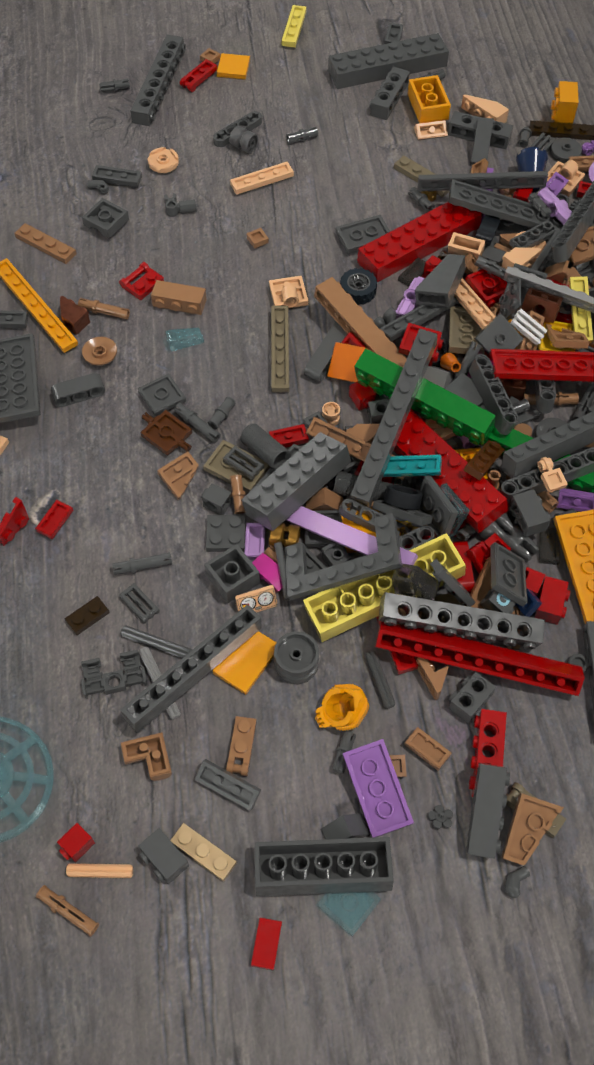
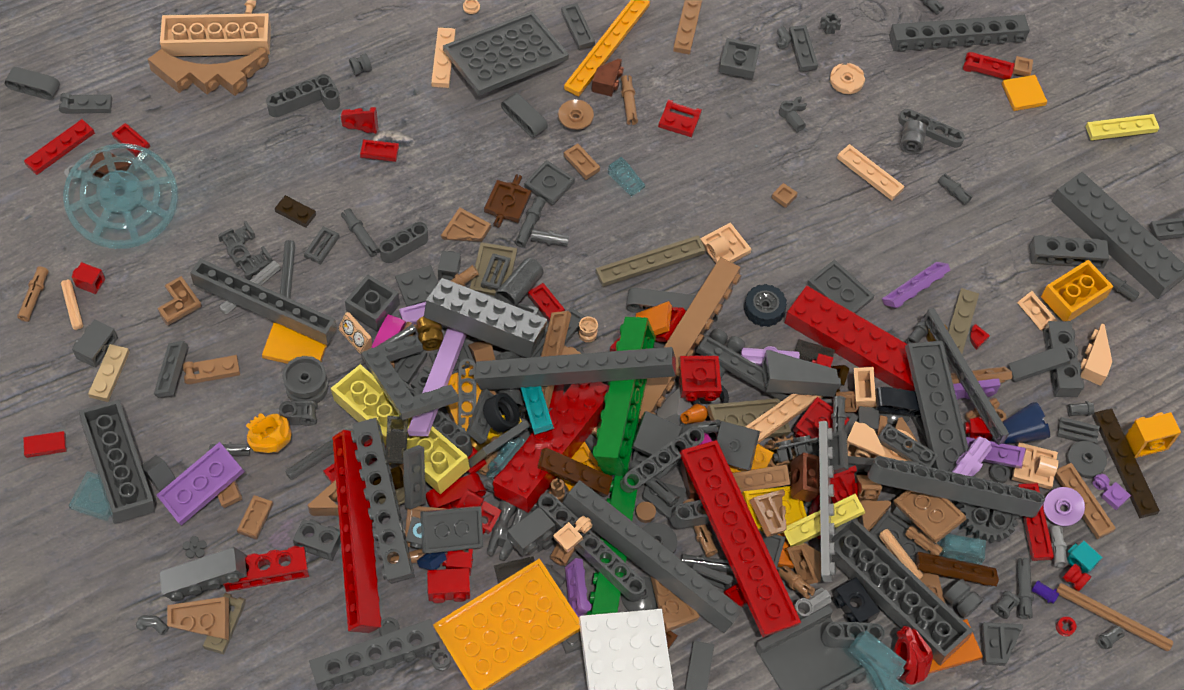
camera: 65 degrees right, 0 degrees up
(103, 150) = (830, 23): none -> dark grey gear
(151, 363) = (581, 161): none -> medium nougat plate
(172, 536) = (408, 235): none -> dark grey beam
(178, 297) = (671, 154): medium nougat brick -> none
(327, 673) = (299, 412): none -> dark grey piece
(380, 187) = (916, 284): none -> medium lavender plate
(439, 169) = (978, 336): none -> red tile
(529, 324) = (763, 469): white tile -> none
(539, 205) = (963, 444): dark grey axle -> none

